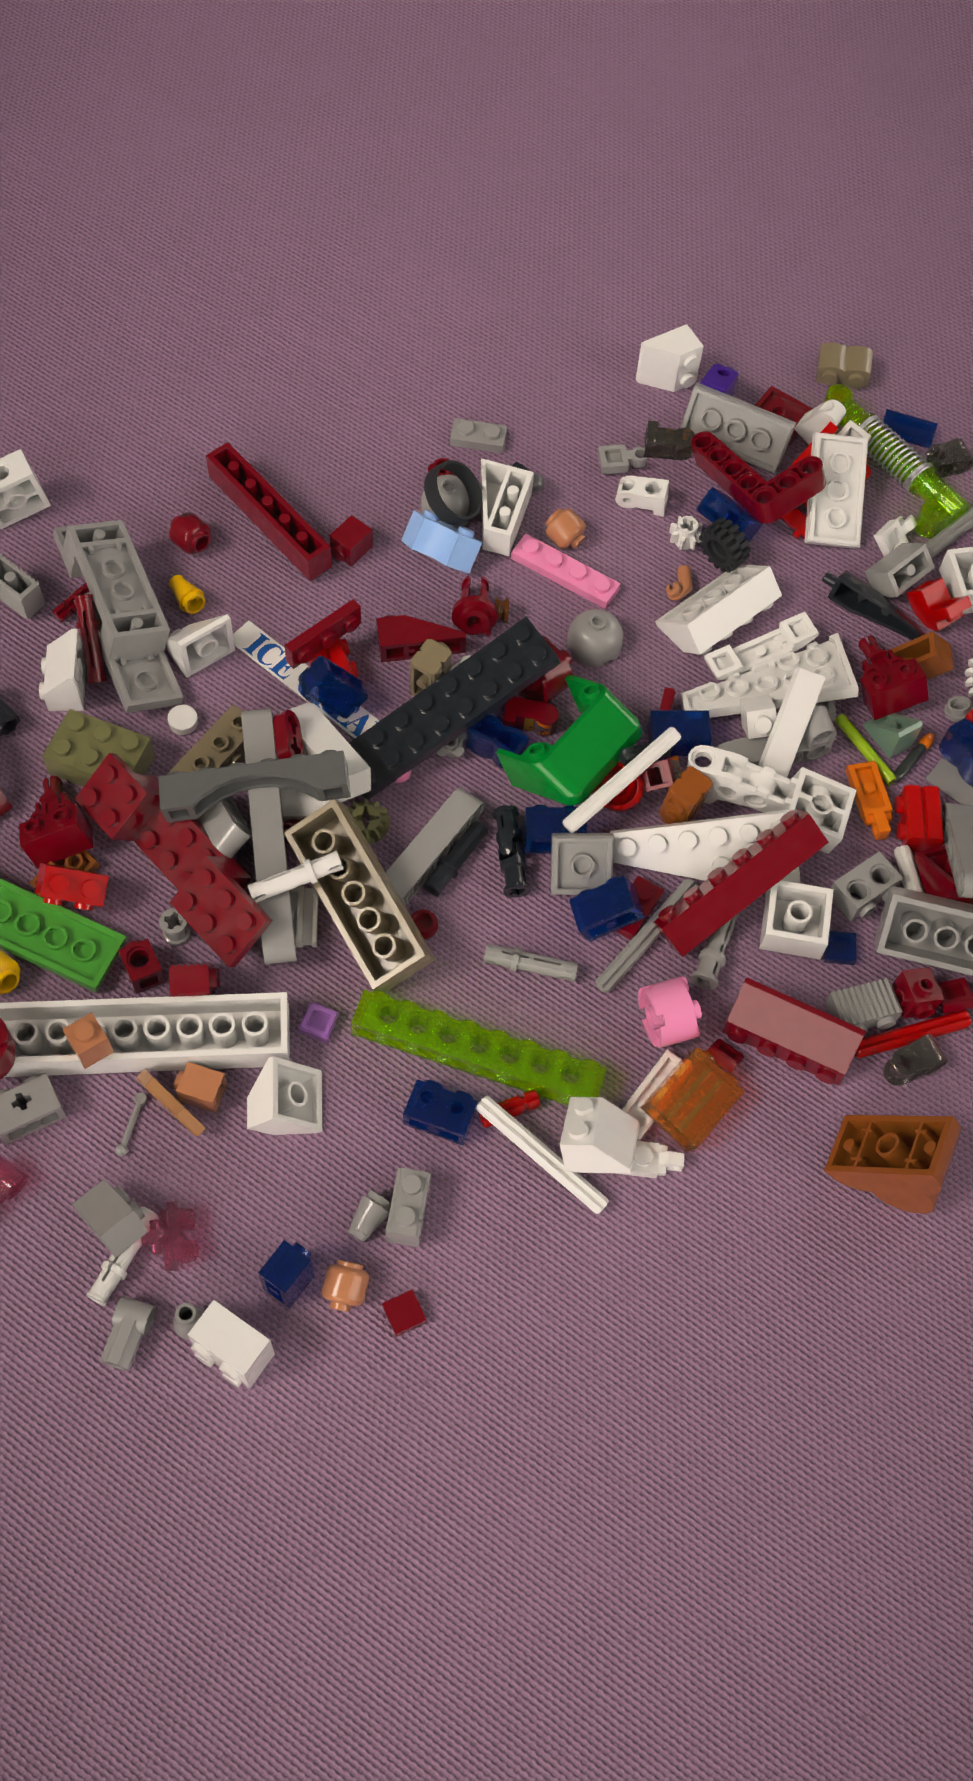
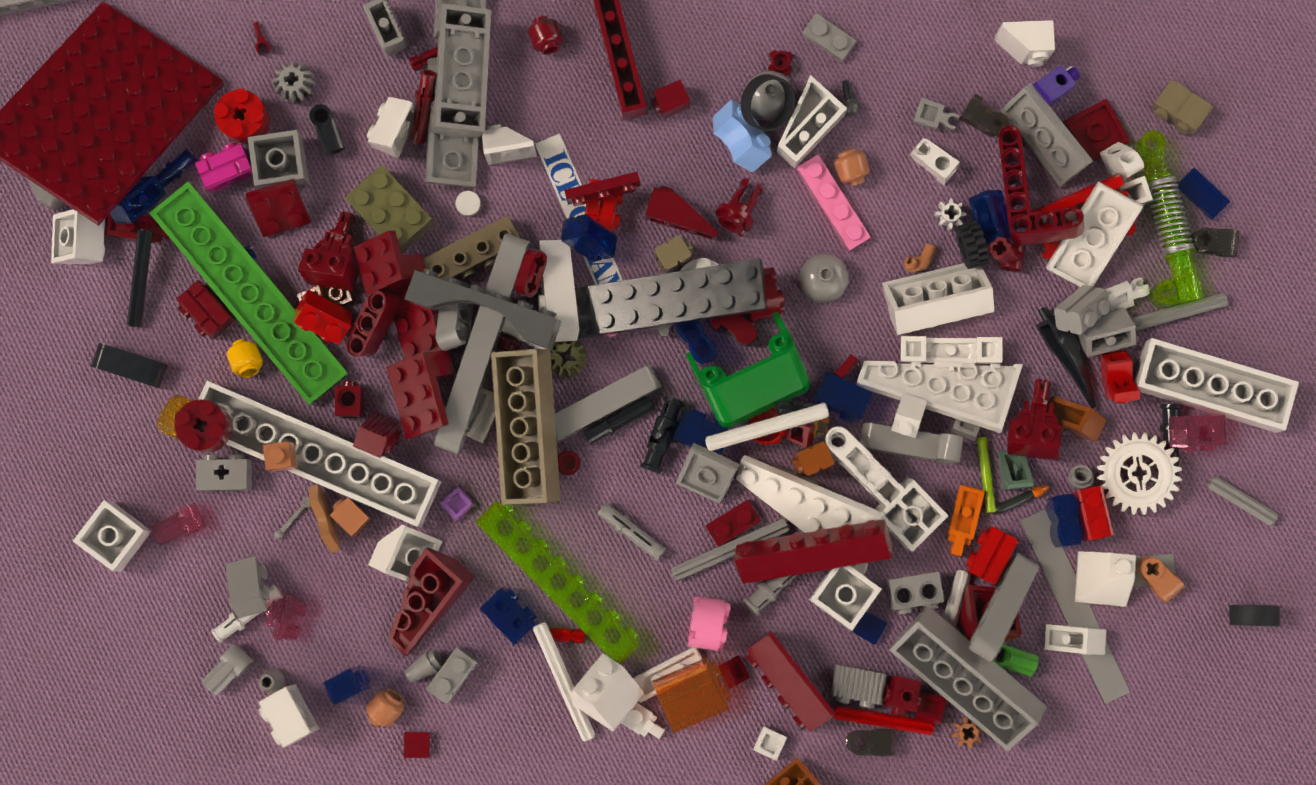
camera: 35 degrees right, 20 degrees up
(123, 858) = (381, 316): none -> dark red beam
(174, 927) = (378, 383): light grey bush -> none
(187, 595) = (519, 92): yellow cone -> none
(297, 876) = (483, 397): white pin -> none
(336, 1130) = (431, 591): none -> dark red wedge
(502, 609) = (761, 218): reddish brown bush -> none
(606, 908) = (706, 519): clear blue brick -> none
(764, 540) = (1008, 254): none -> dark red piece
(792, 721) = (924, 440): white tile -> none
(807, 1114) = (769, 743): none -> white plate
(866, 555) = (1082, 309): none -> light grey brick

